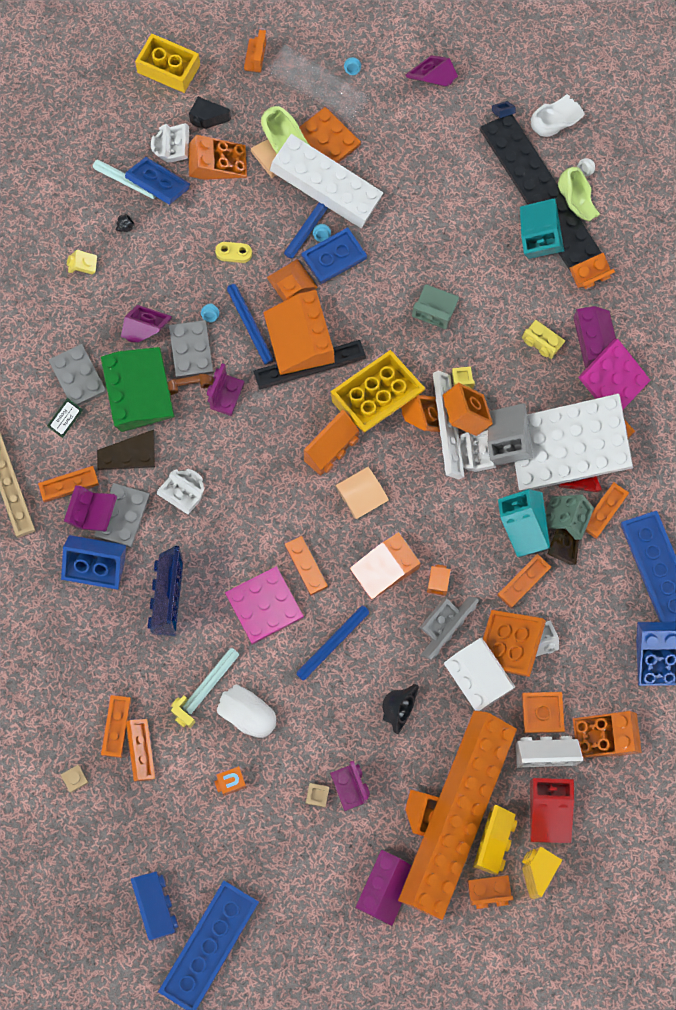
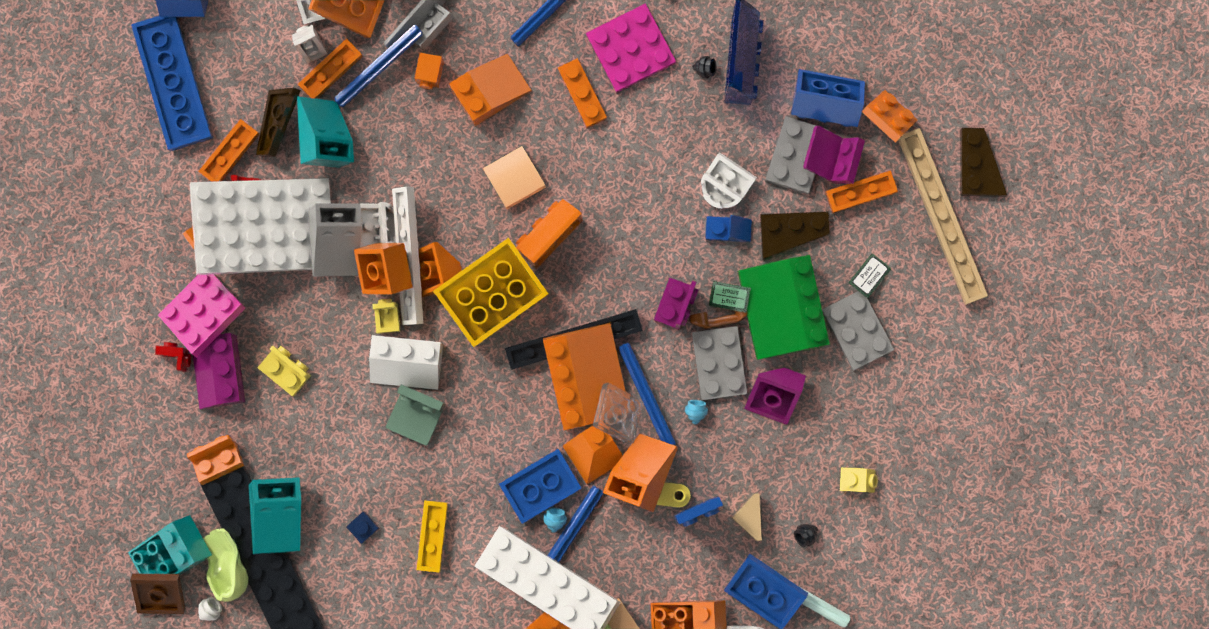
camera: 170 degrees left, 10 degrees up
(41, 543) = (890, 115): none -> orange plate
(169, 234) = (749, 517): none -> tan slope
(180, 453) = (728, 228): none -> blue slope
(181, 397) = (729, 296): none -> clear green sticker
(199, 587) = (705, 67): none -> black plate
(209, 229) = (690, 515): none -> blue plate
(254, 261) = (641, 472): none -> orange slope
(272, 304) = (618, 413): none -> clear plate
(417, 219) = (432, 536): none -> yellow plate
(445, 347) = (405, 362): none -> white slope
(472, 226) = (362, 527): none -> dark blue plate
(481, 583) = (378, 66): none -> blue axle
(545, 598) = (308, 43): none -> white slope
(570, 513) = (273, 142): sand green bracket -> none
(620, 205) = (171, 549): none -> teal slope
(626, 174) = (157, 593): none -> reddish brown plate
(637, 351) = (172, 350): none -> red bracket

